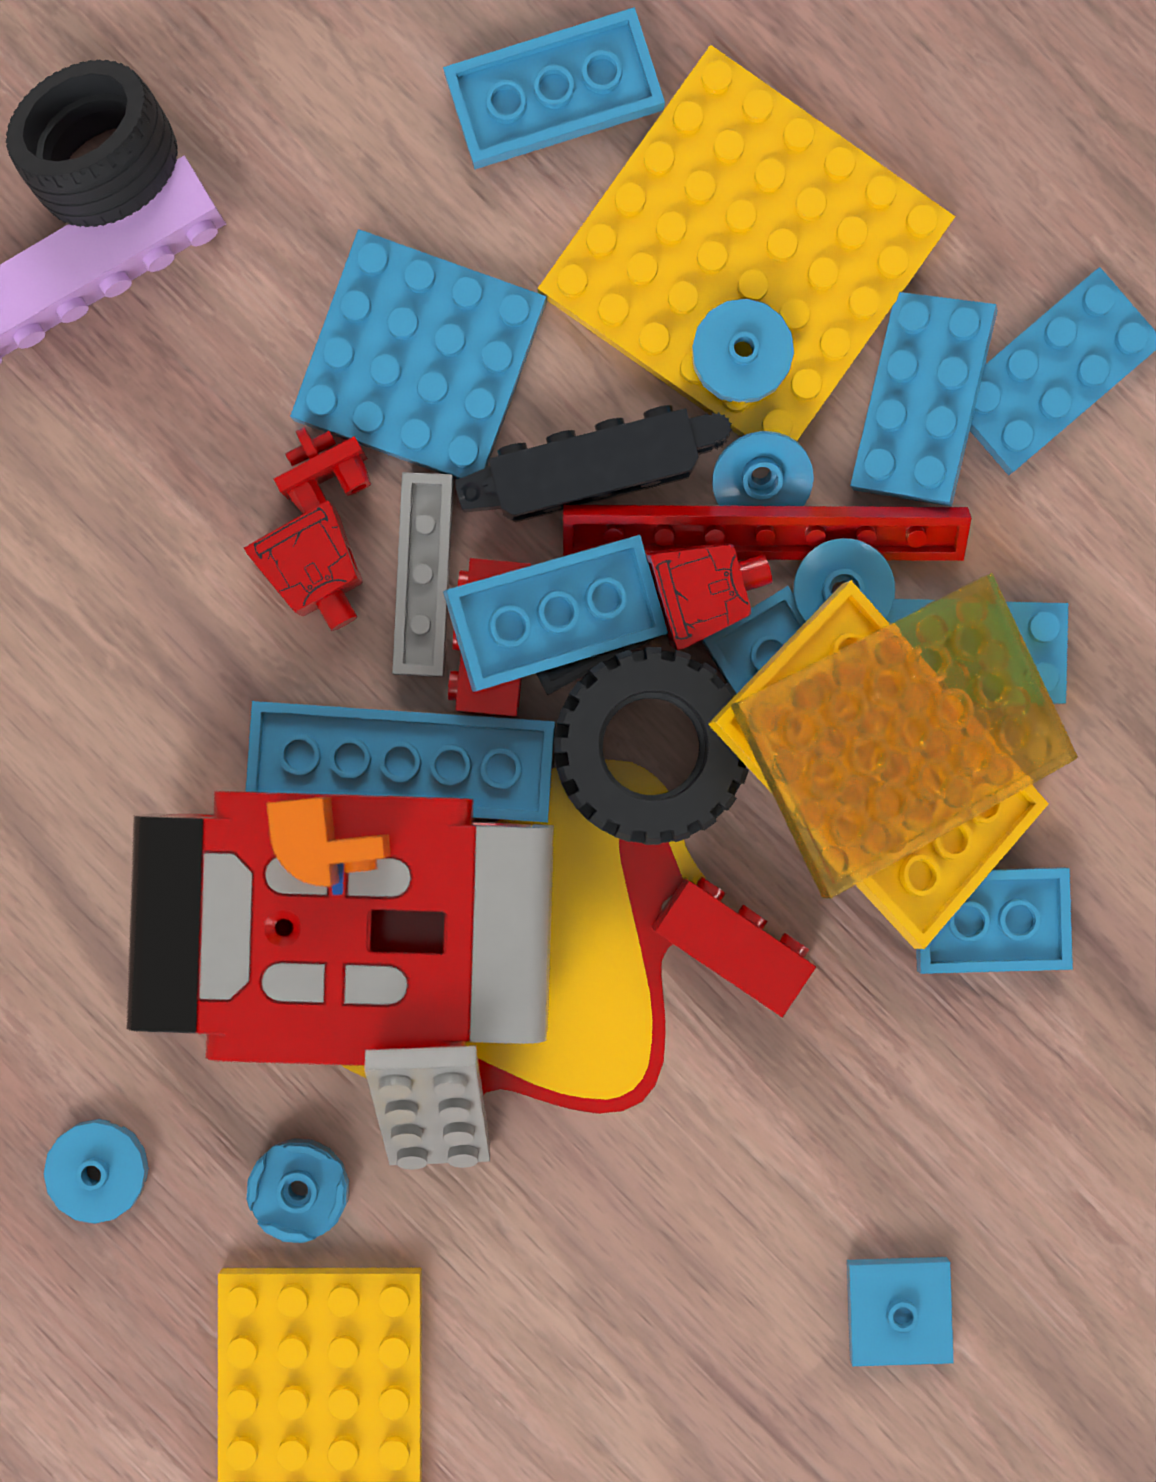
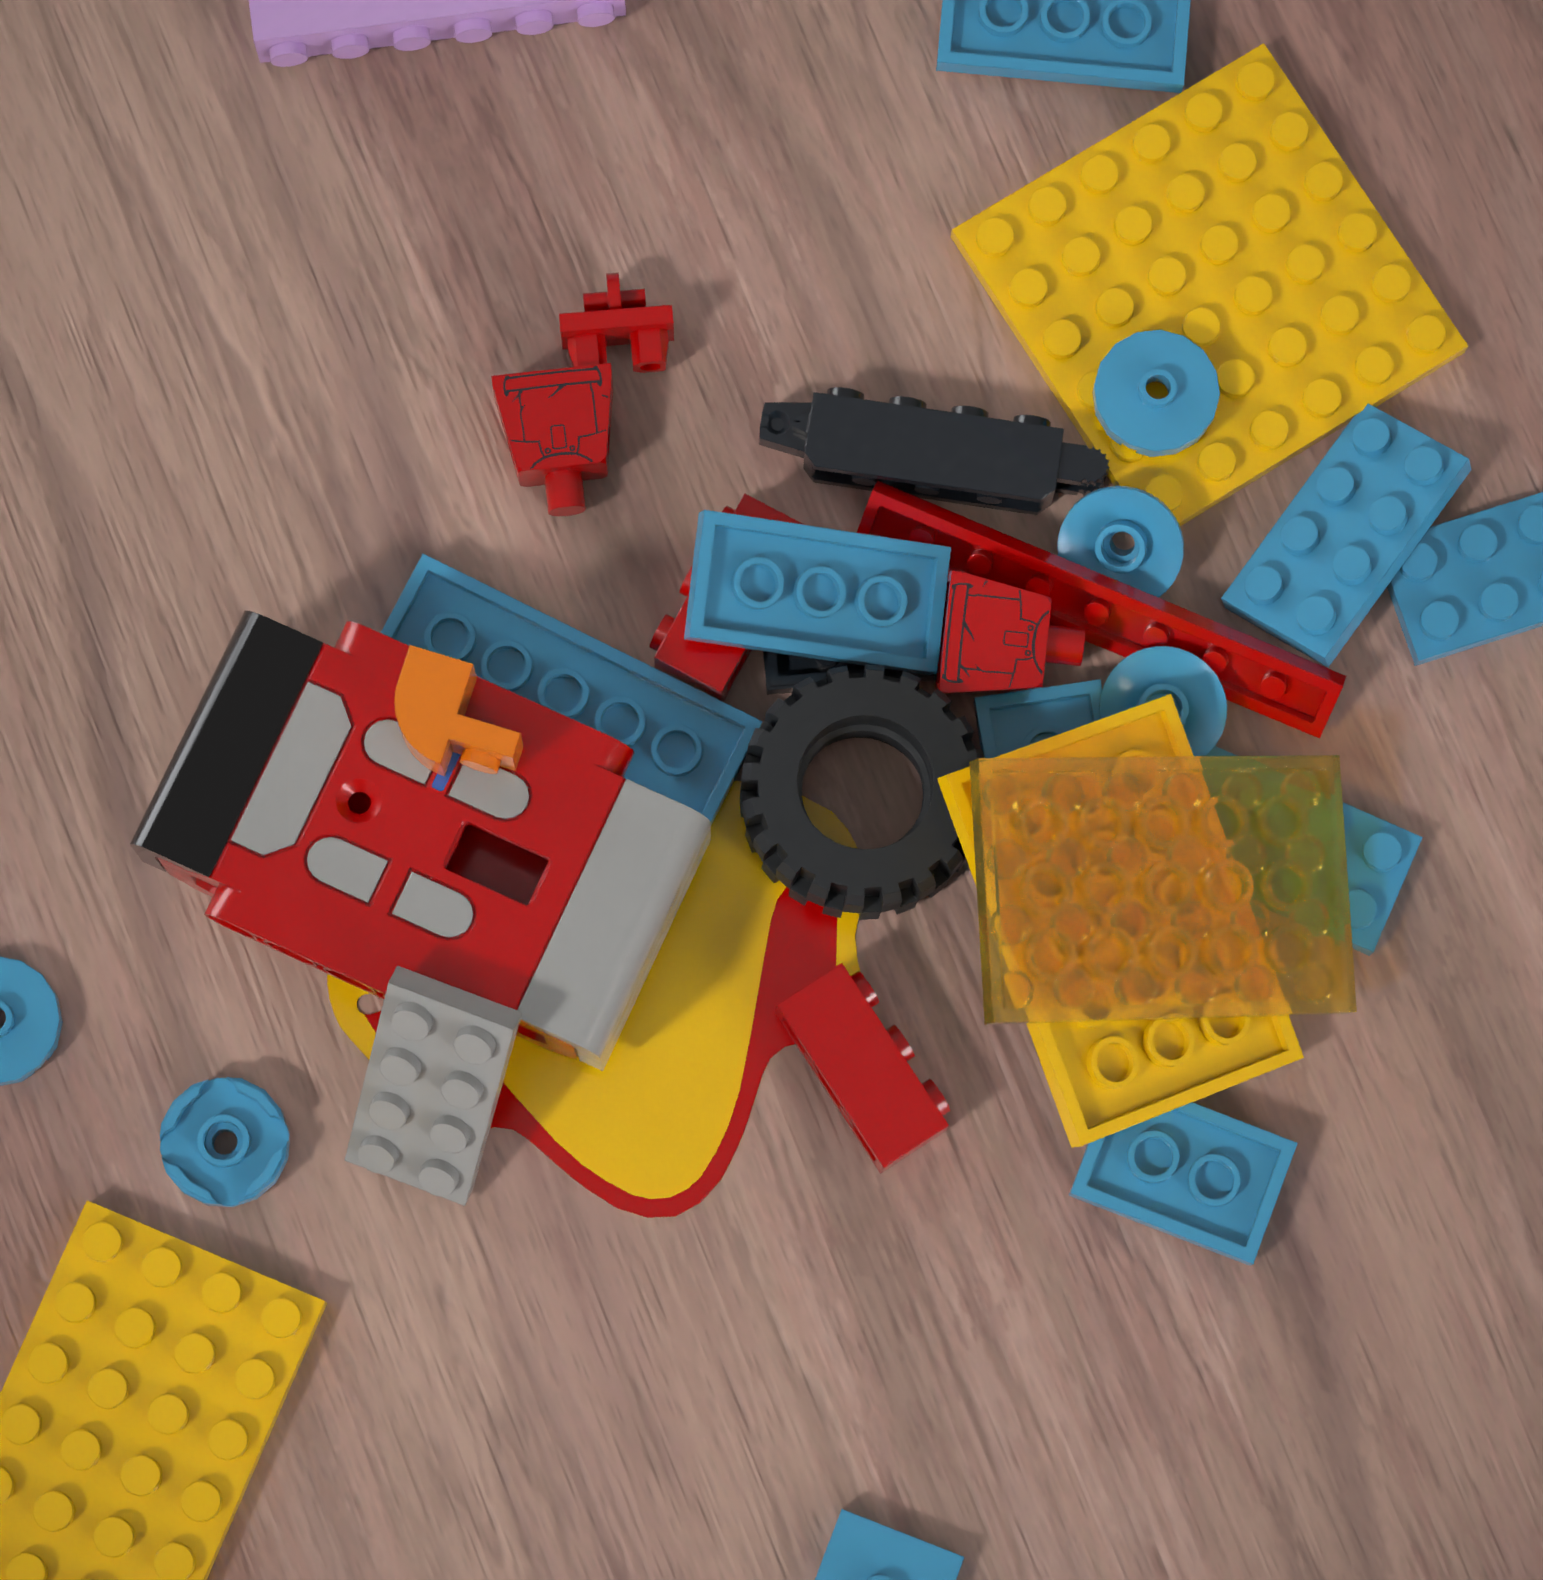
camera: 20 degrees right, 10 degrees down
(418, 357) = (782, 251): dark azure plate -> none
(423, 574) = (681, 488): light grey plate -> none

